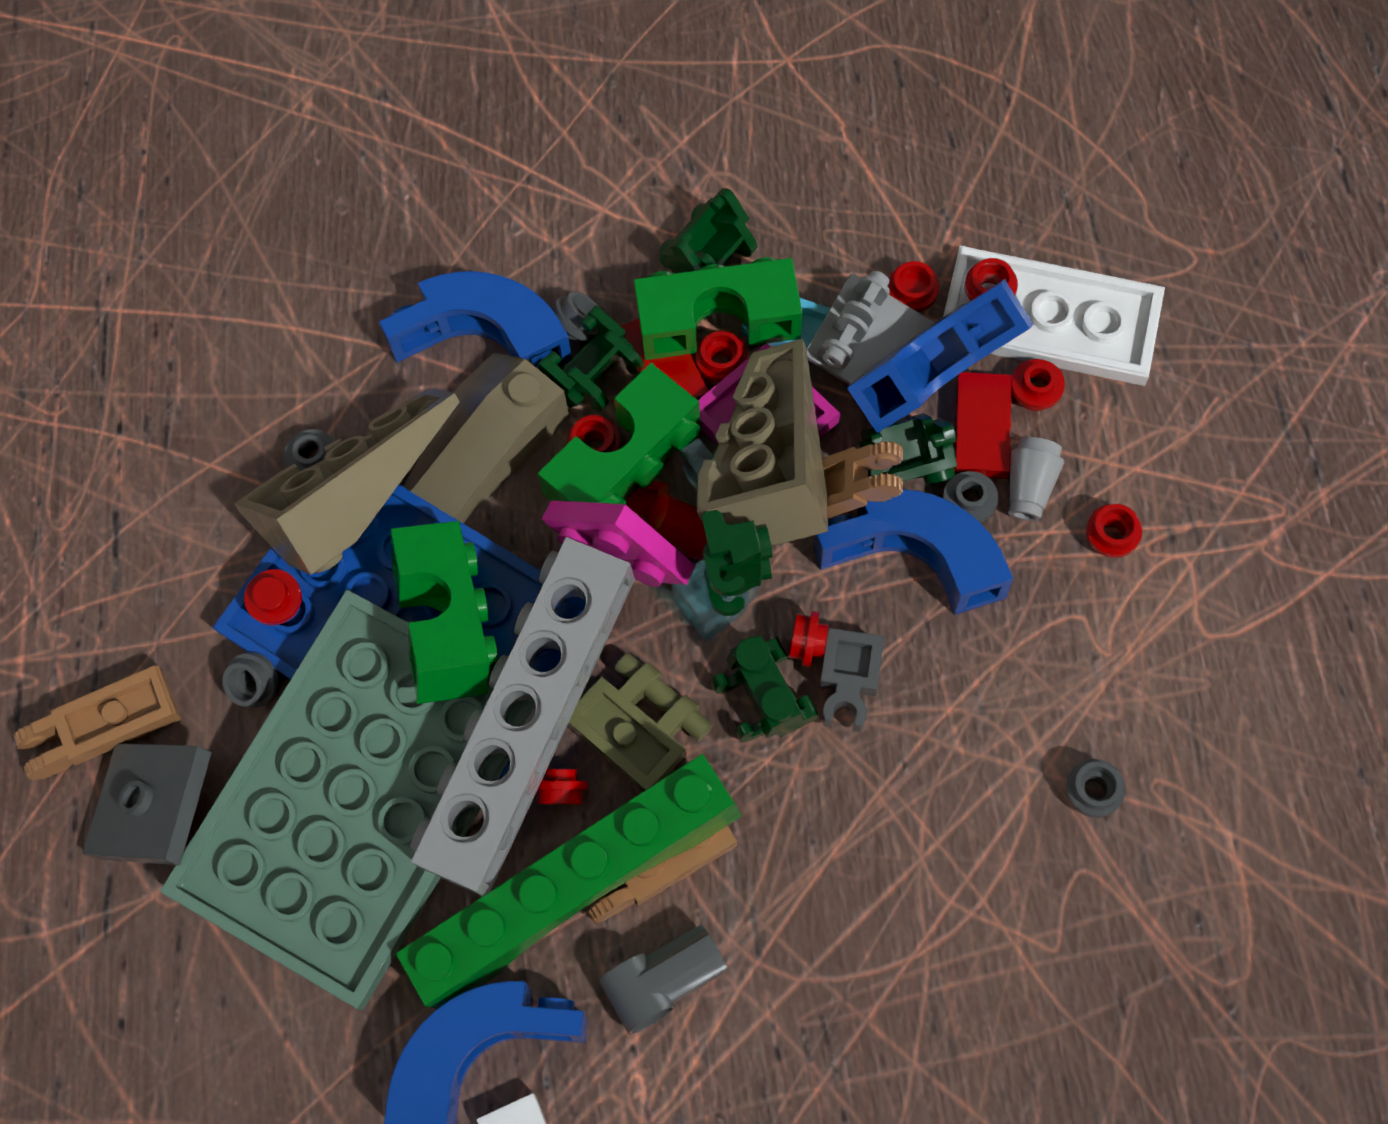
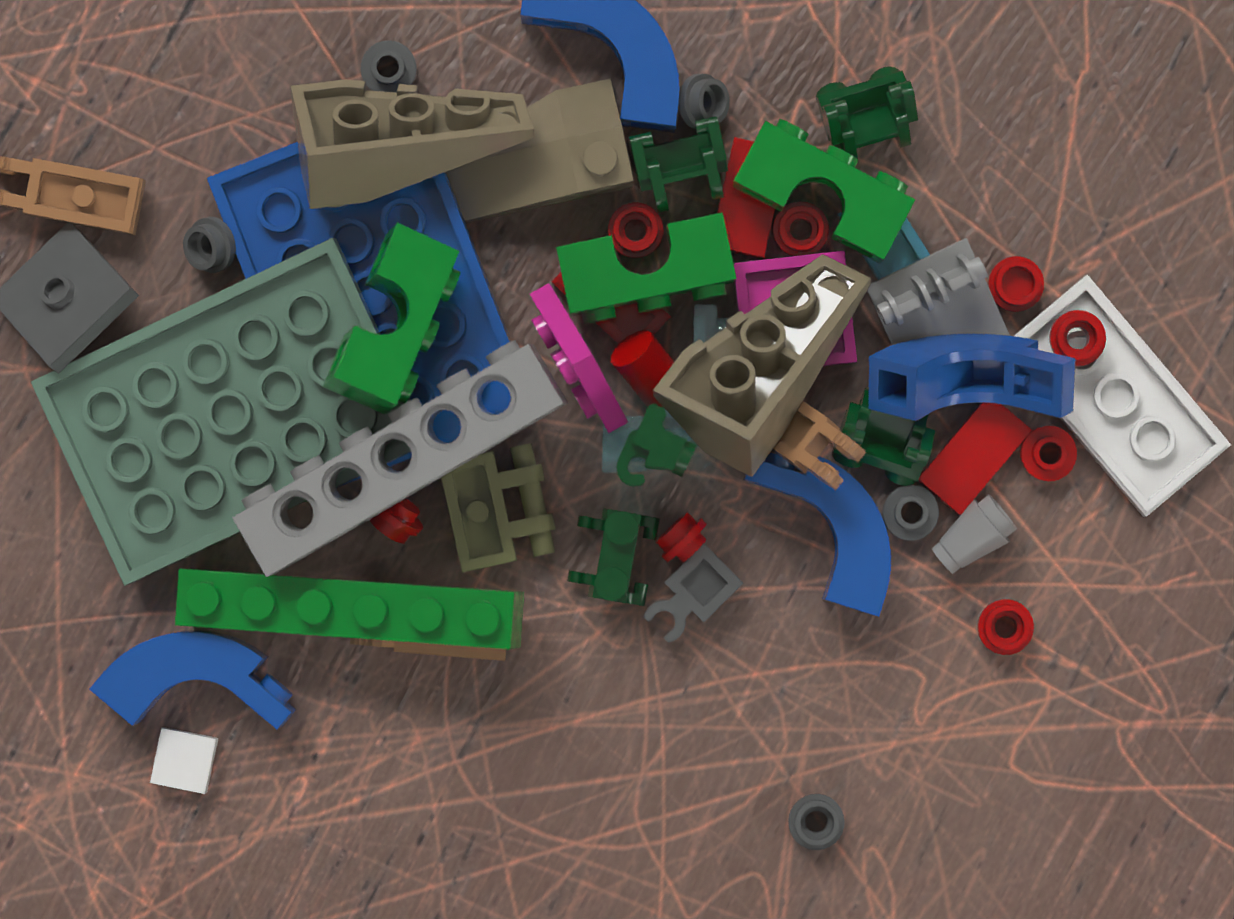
camera: 30 degrees right, 20 degrees up
(273, 597) = (270, 194): red plate -> none
(649, 985) = (358, 724): dark grey piece -> none

